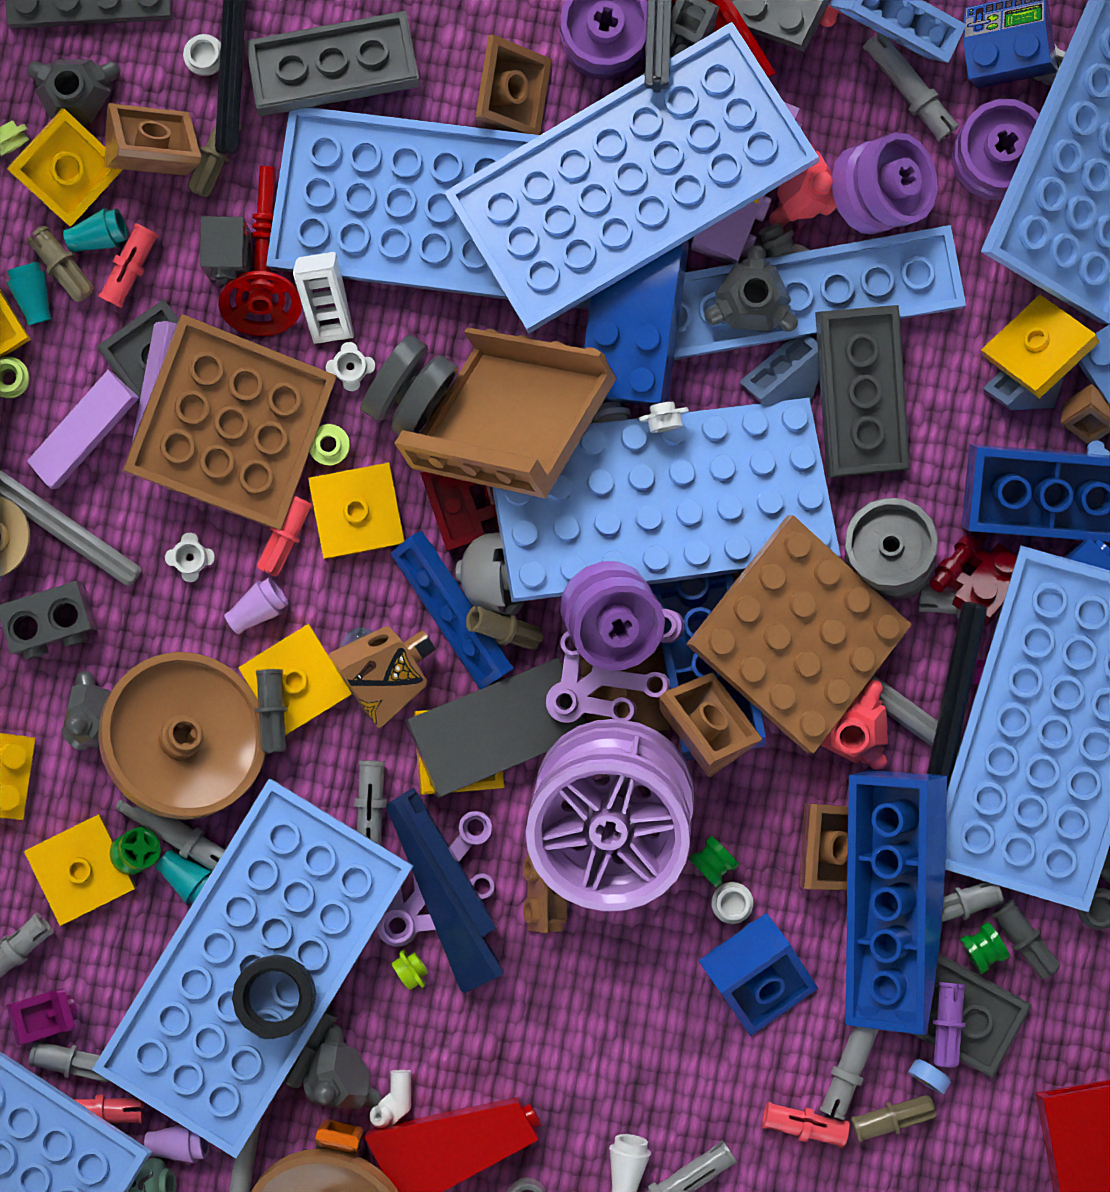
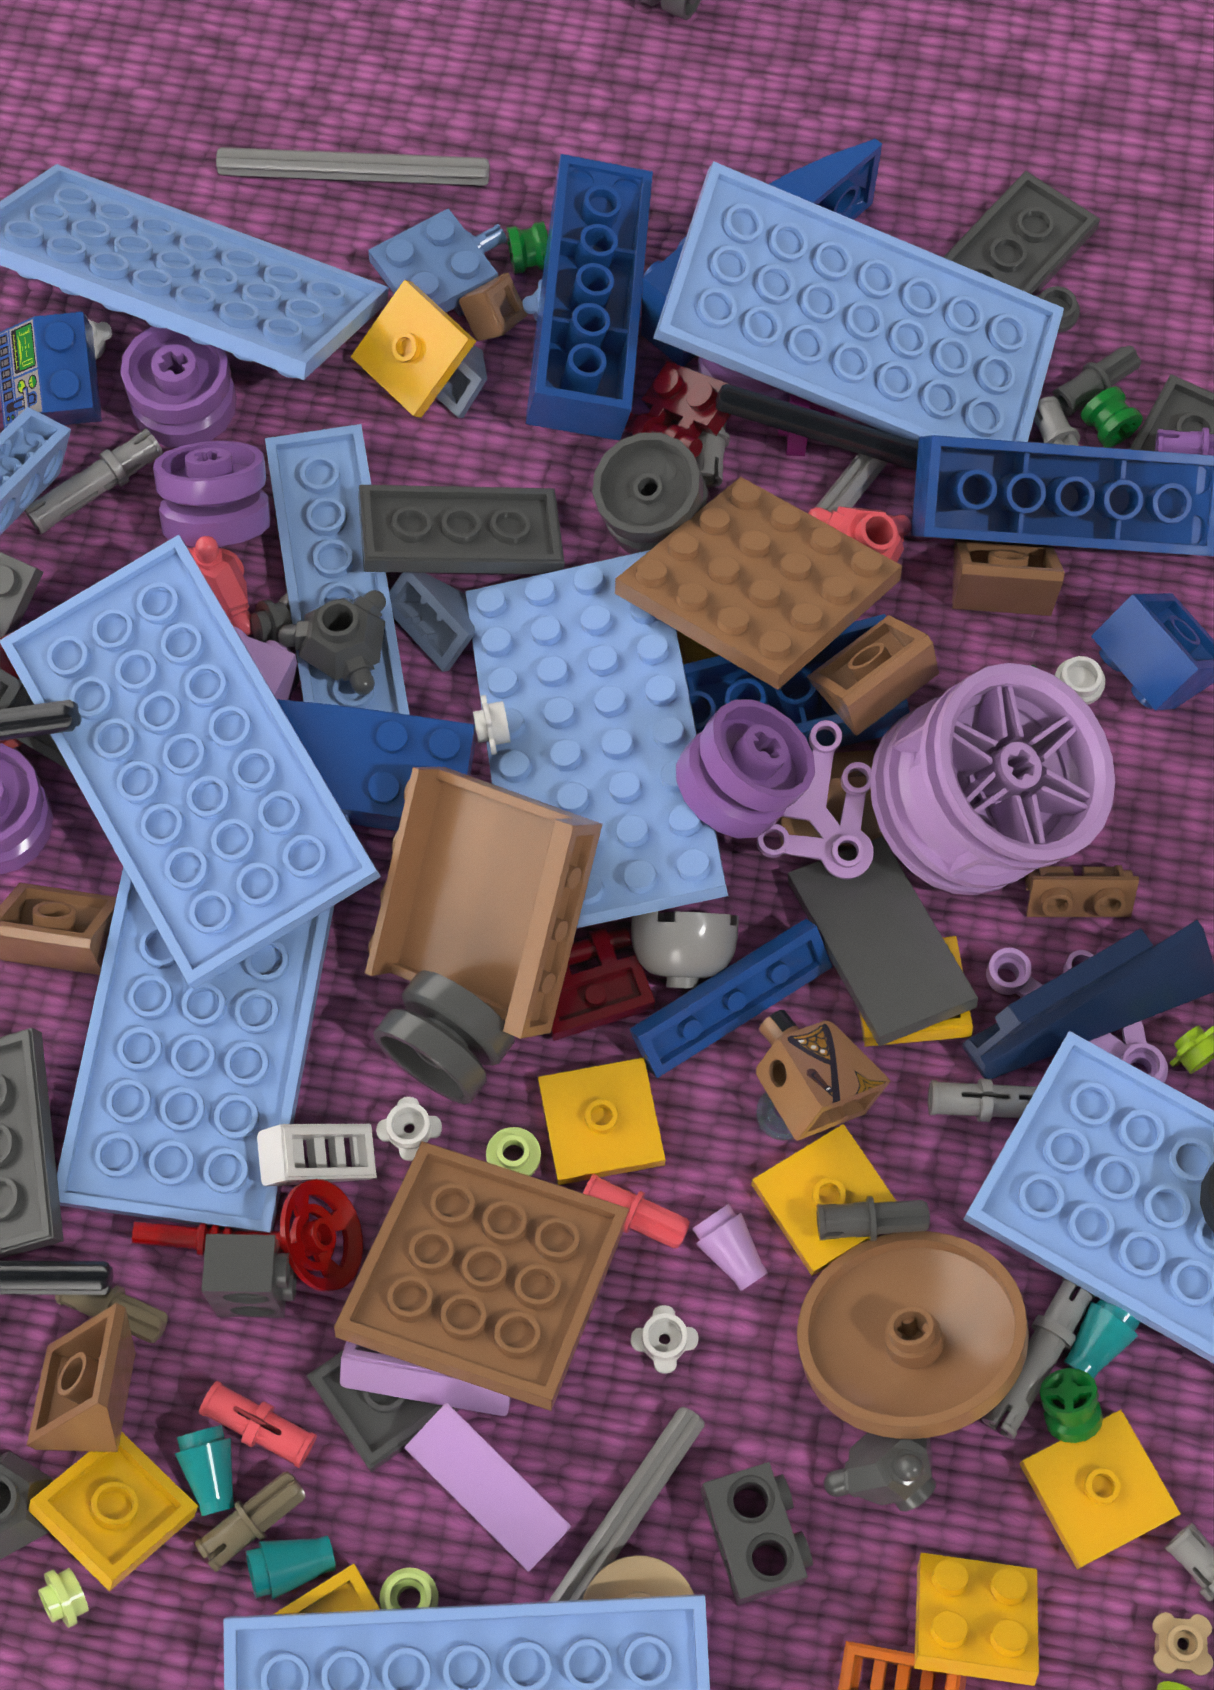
camera: 85 degrees left, 20 degrees down
(503, 628) = (754, 930): dark tan axle -> none

